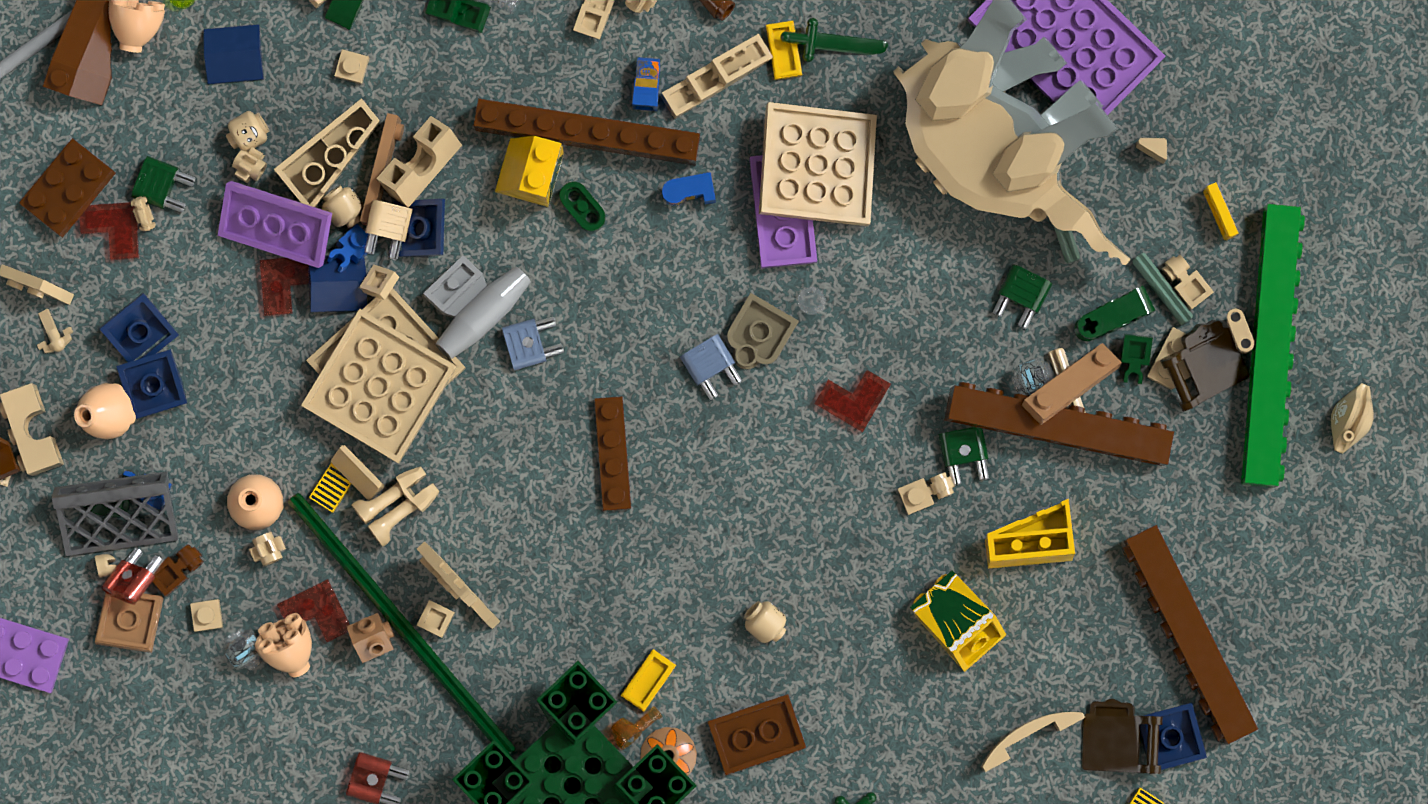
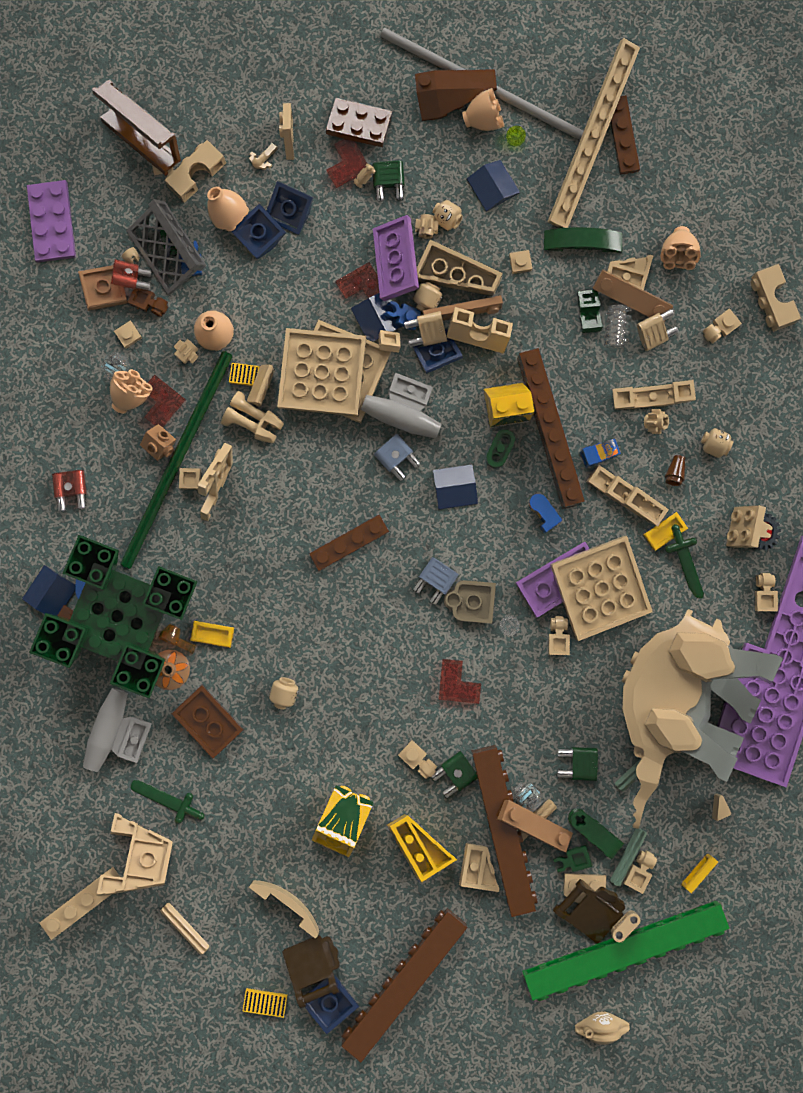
camera: 70 degrees right, 0 degrees up
(604, 286) = (455, 487): none -> dark blue slope
(861, 249) = (559, 643): none -> tan plate
(1092, 480) = (477, 869): none -> tan wing

